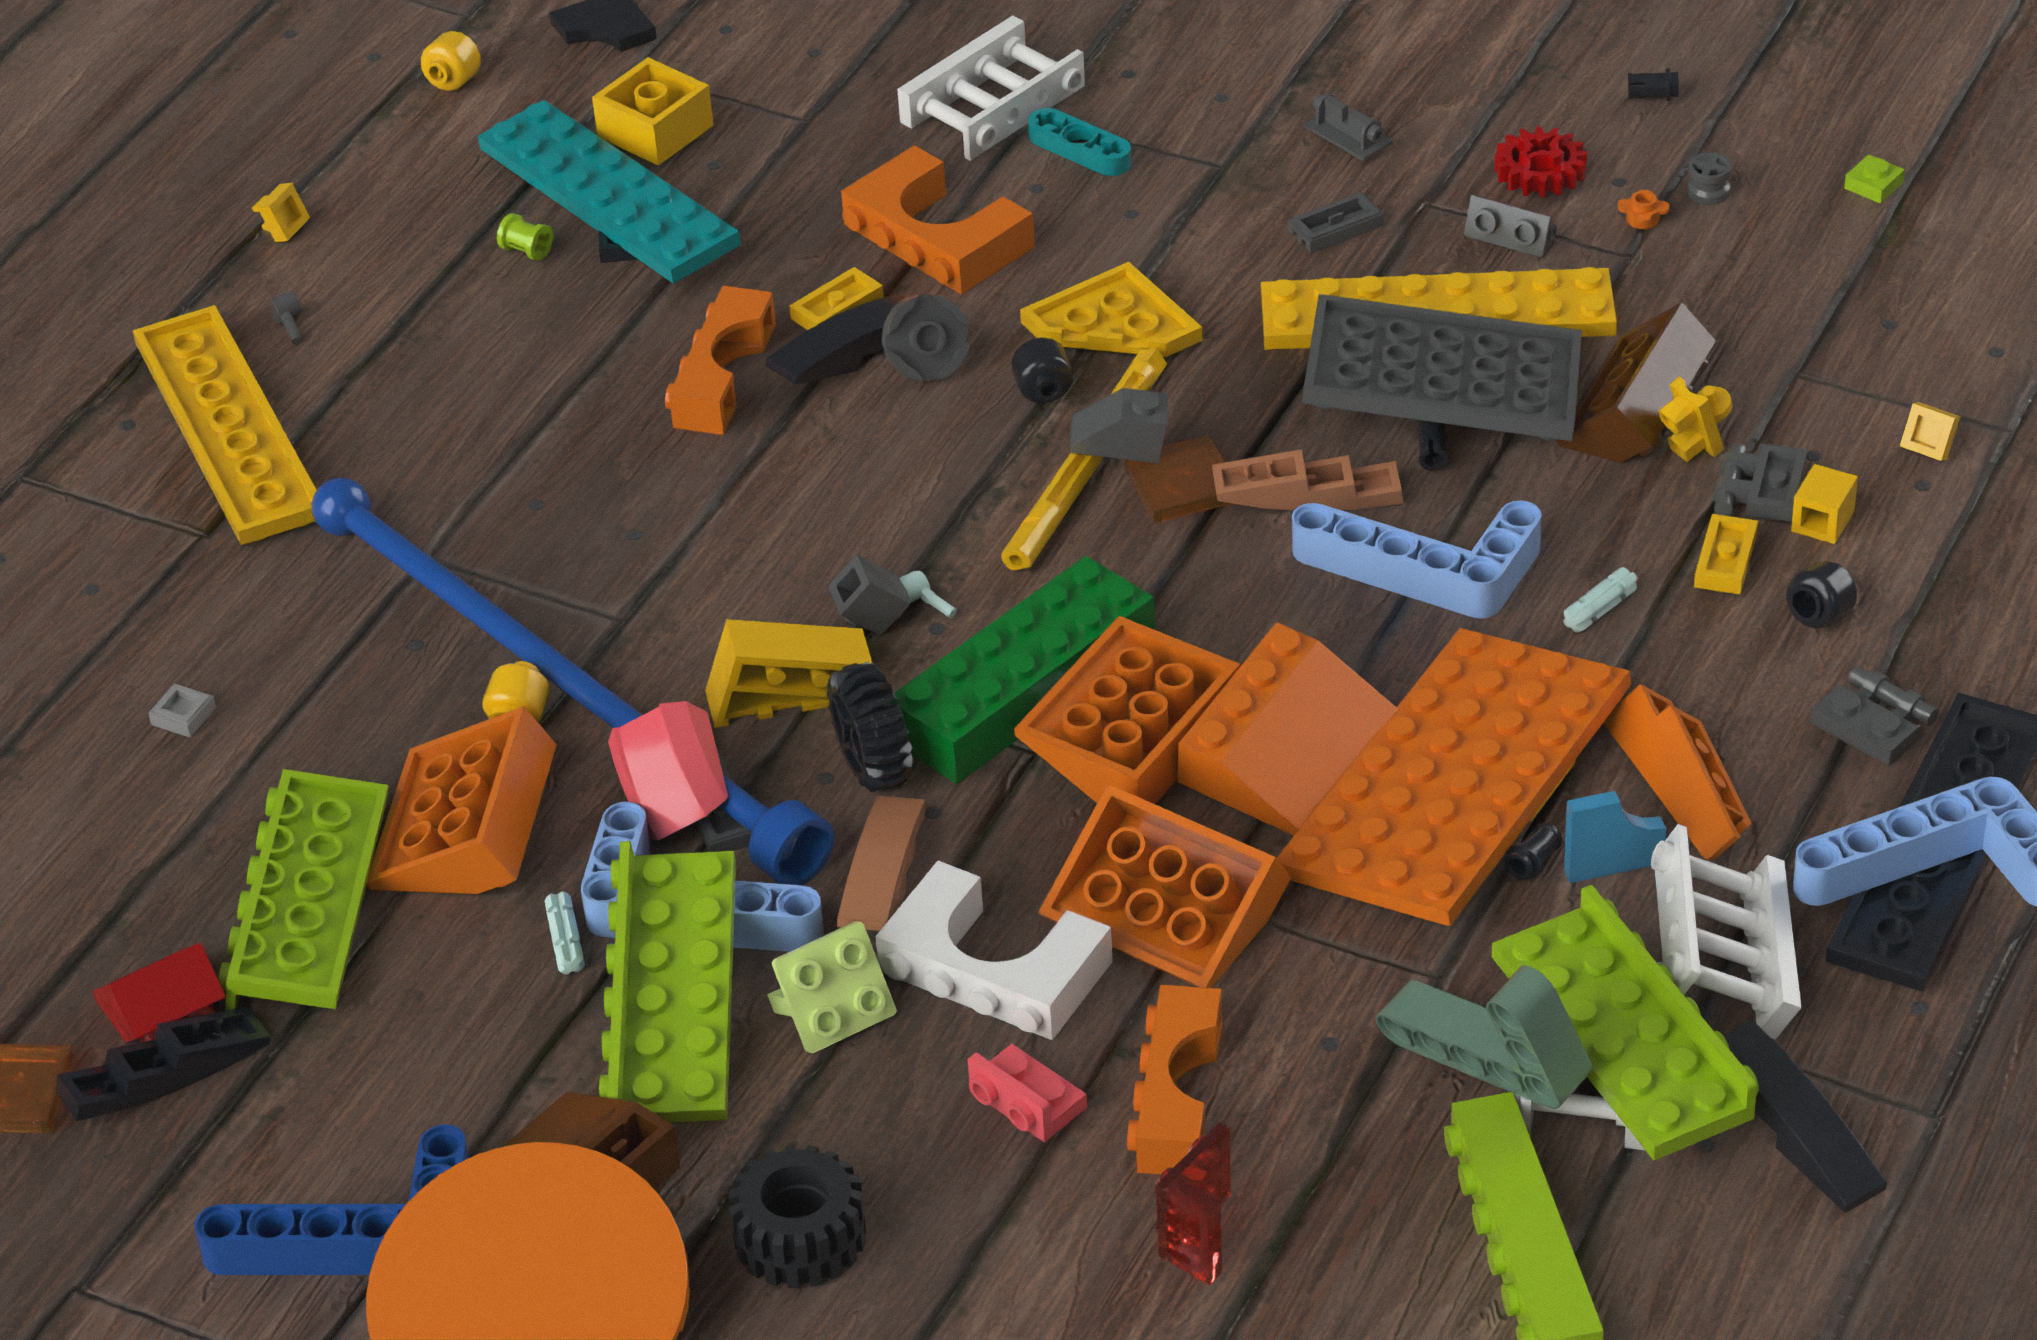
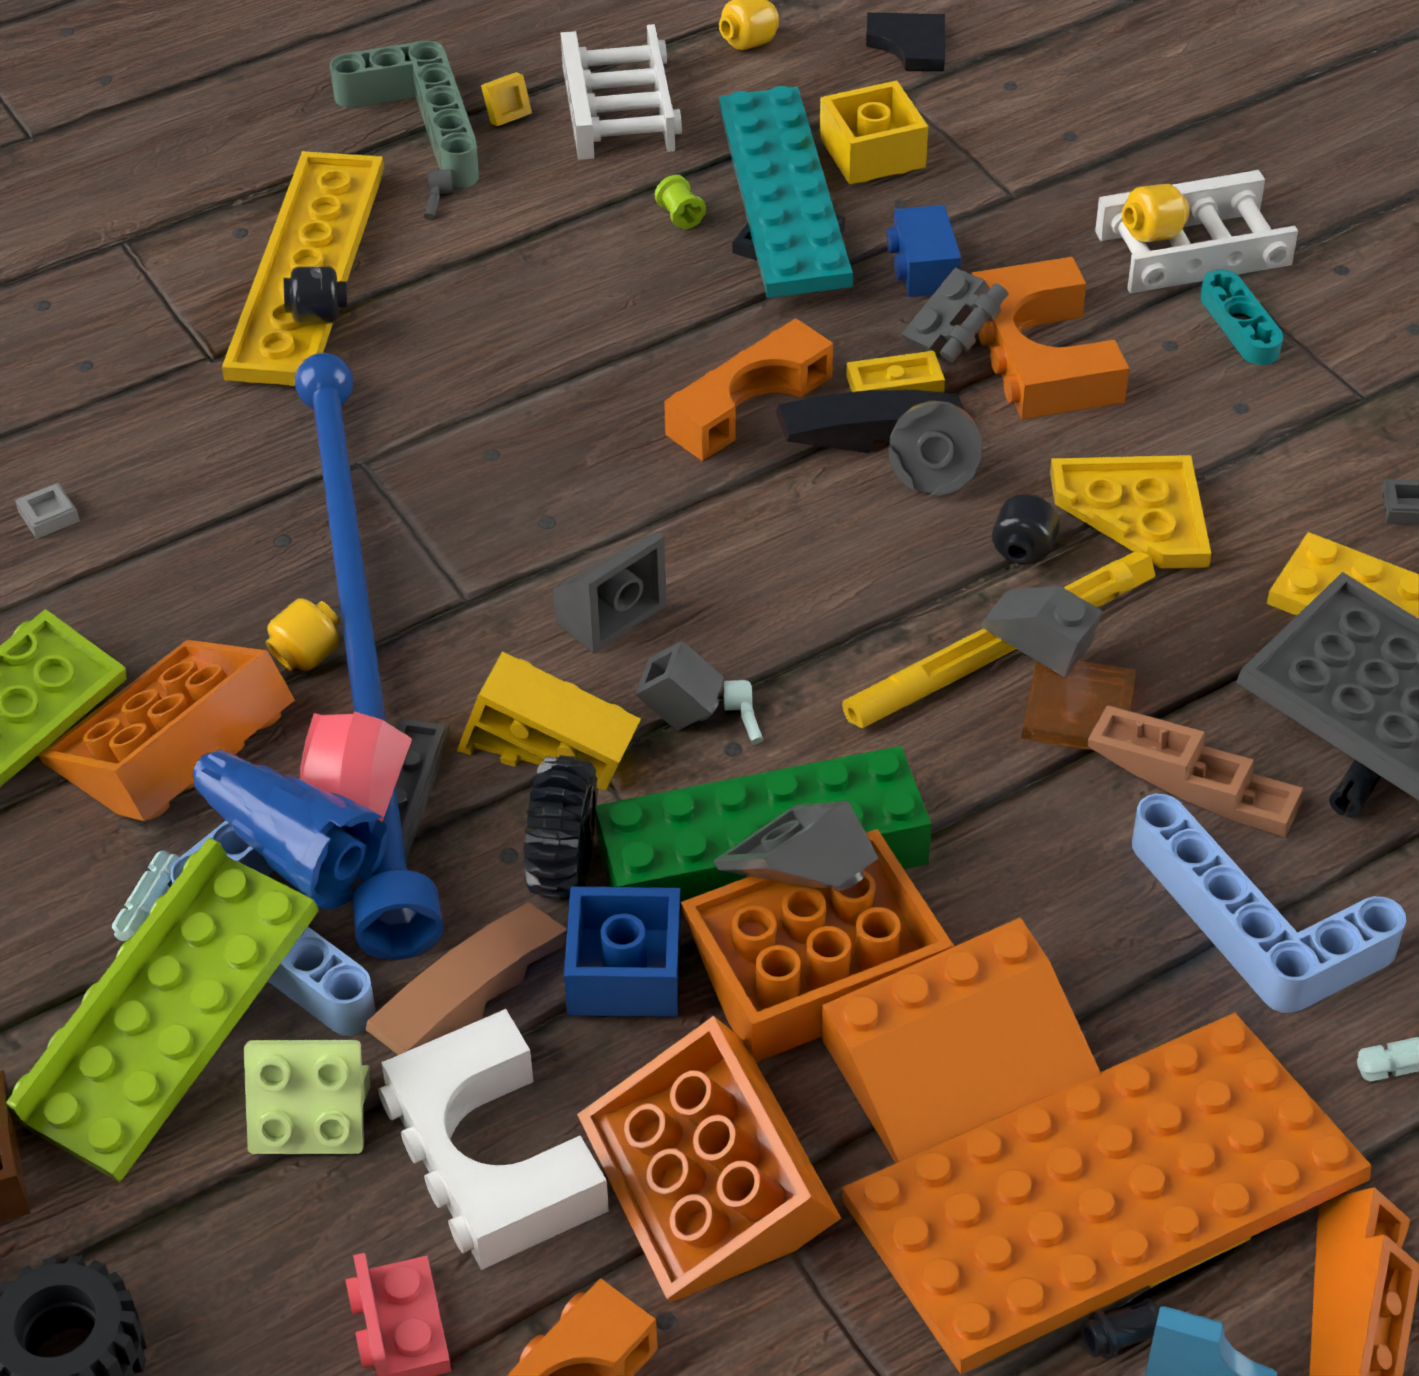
camera: 30 degrees right, 5 degrees up
(207, 231) = (411, 72): none -> sand green beam
(281, 435) = (314, 295): none -> black head
(364, 193) = (585, 105): none -> white fence
(663, 808) = (302, 831): none -> blue cone
(750, 555) = (613, 593): none -> dark grey slope
(777, 191) = (923, 248): none -> blue brick
(843, 230) = (955, 315): none -> dark grey plate
(958, 82) = (1155, 212): none -> yellow head
(989, 787) = (623, 951): none -> blue brick
(1085, 643) = (805, 847): none -> dark grey slope

